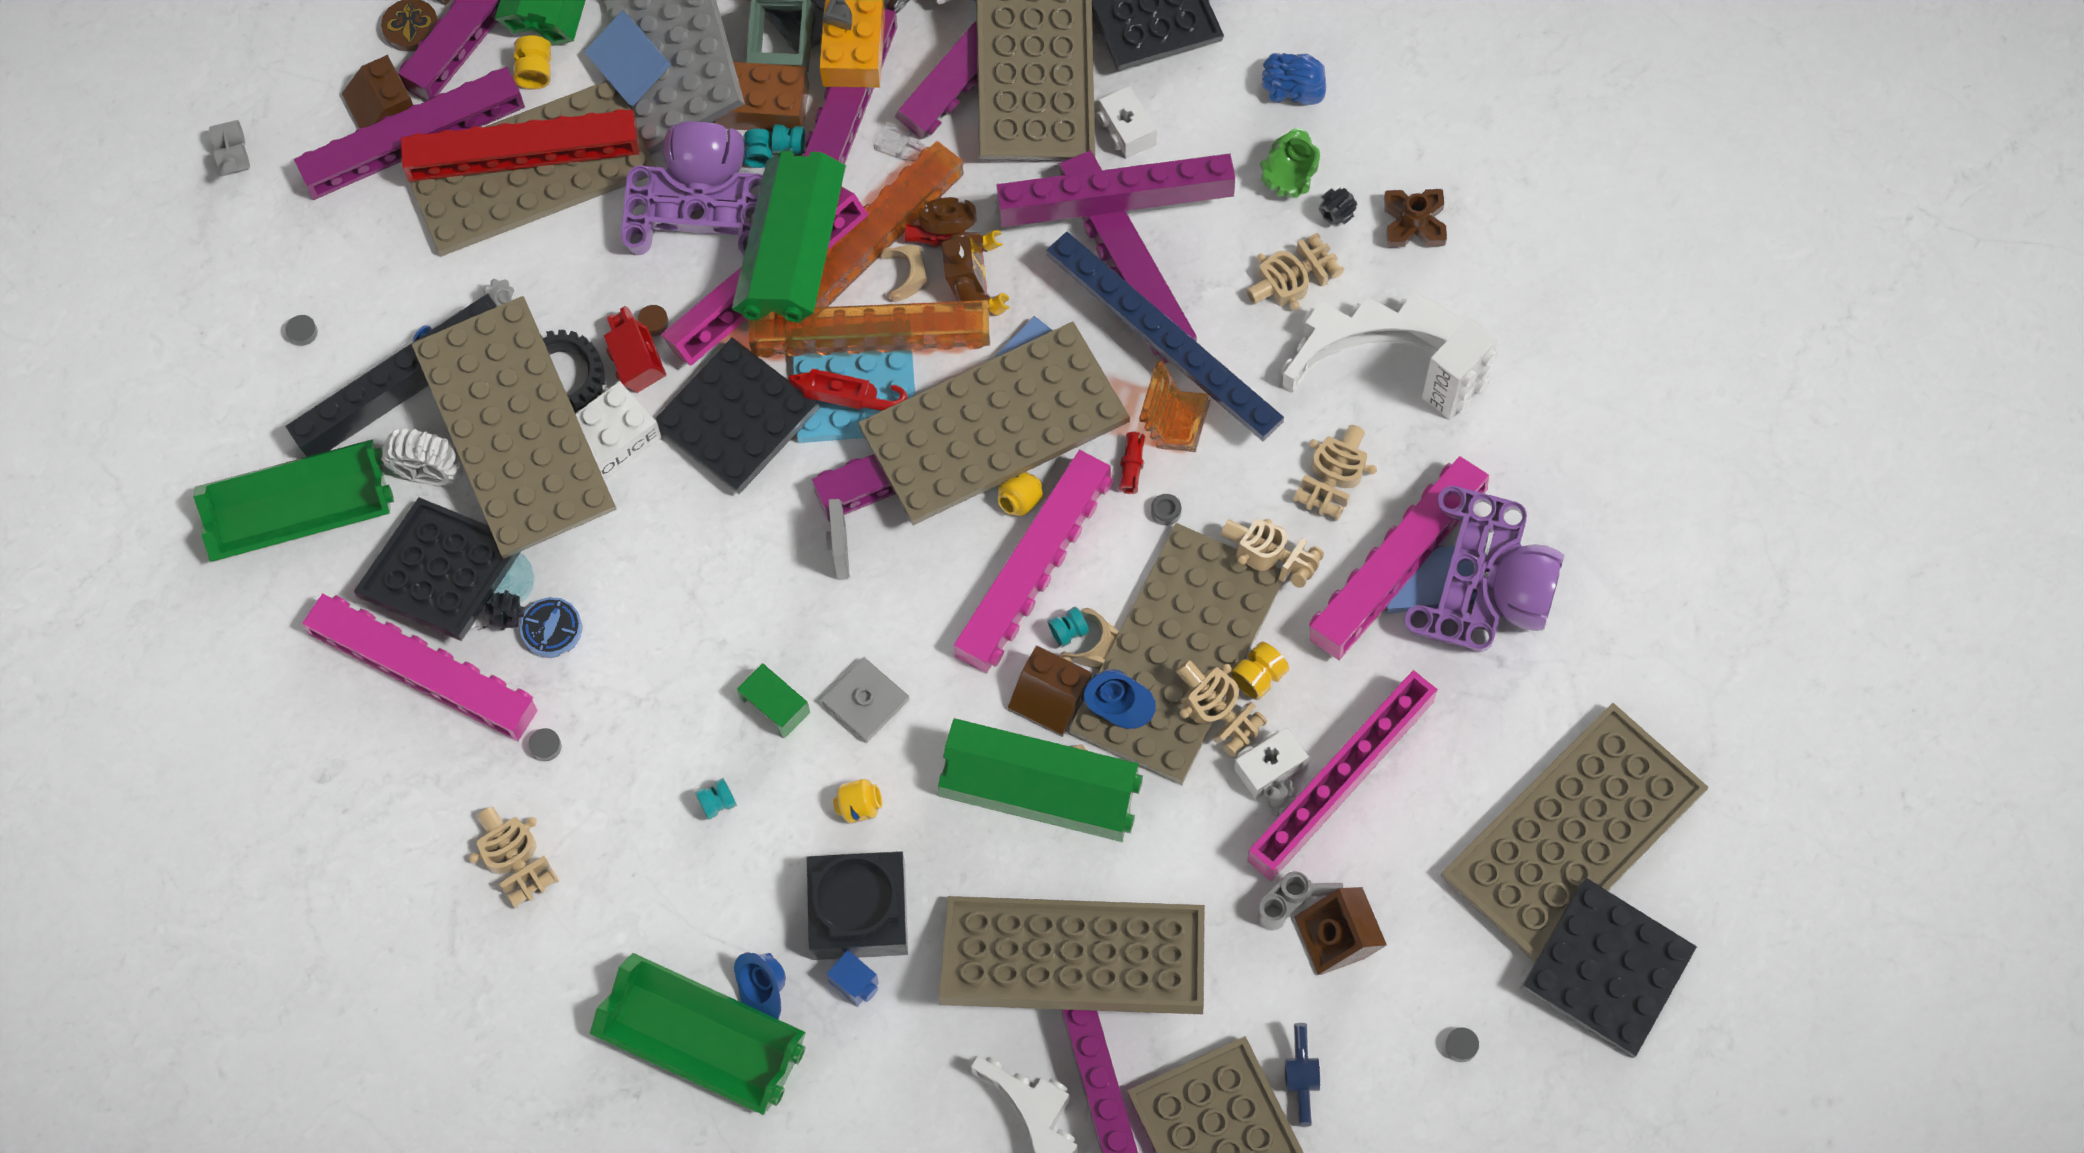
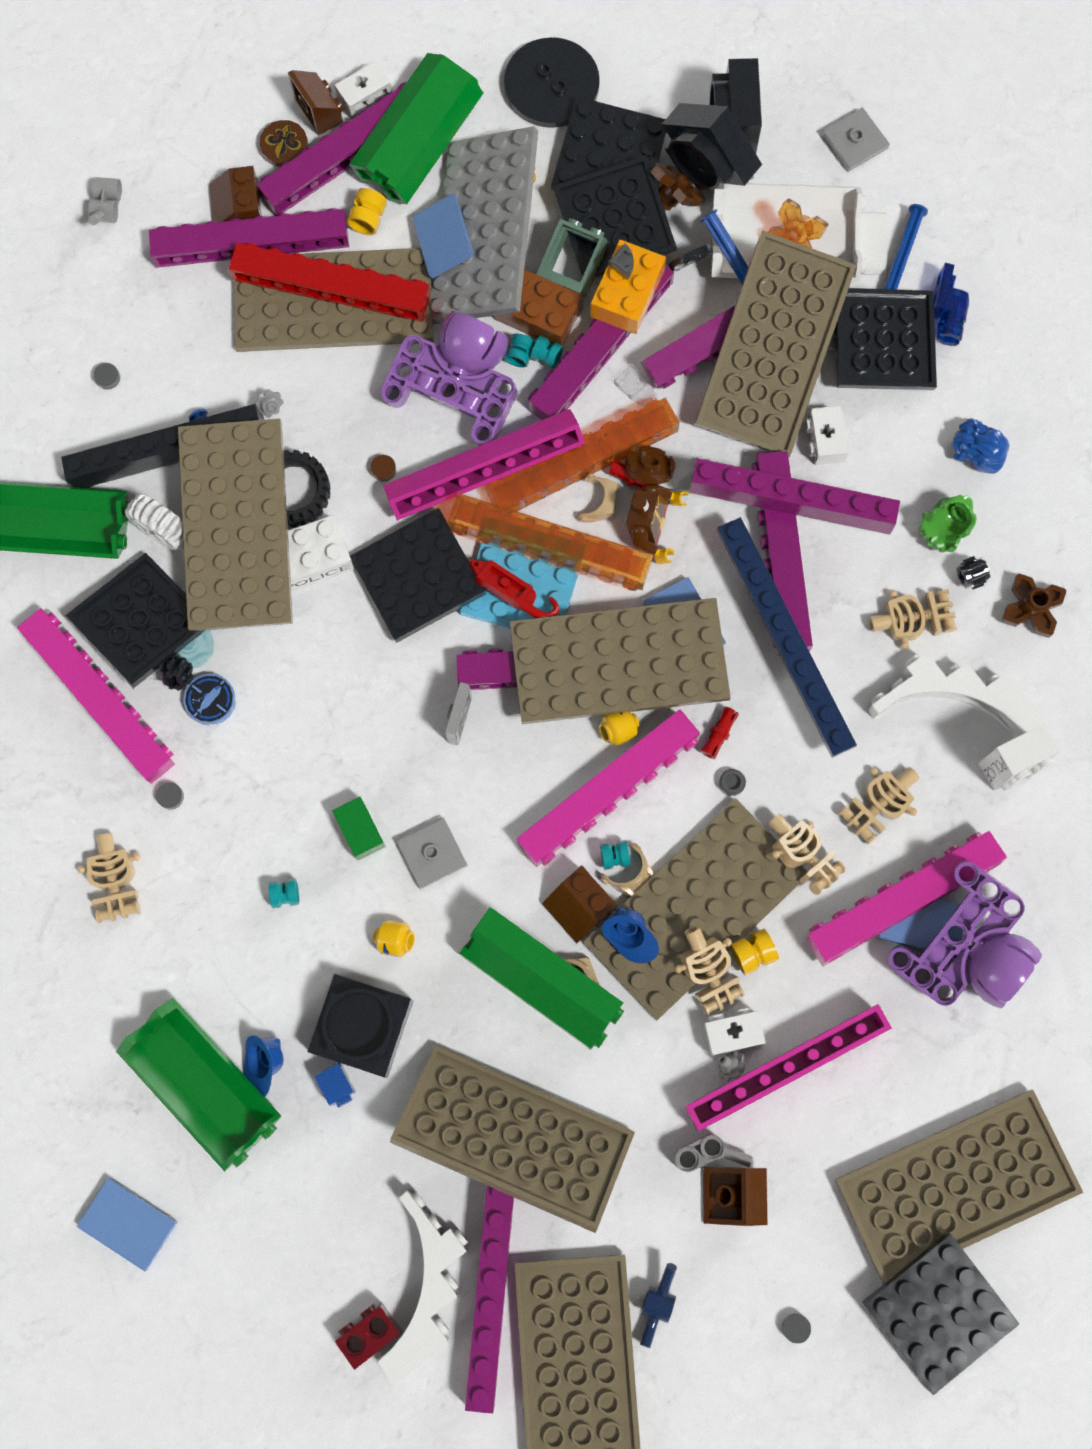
camera: 20 degrees right, 10 degrees up
(633, 351) = (356, 490): red brick -> none
(789, 236) = (512, 443): green panel -> none
(1172, 414) = (768, 705): clear orange plate -> none

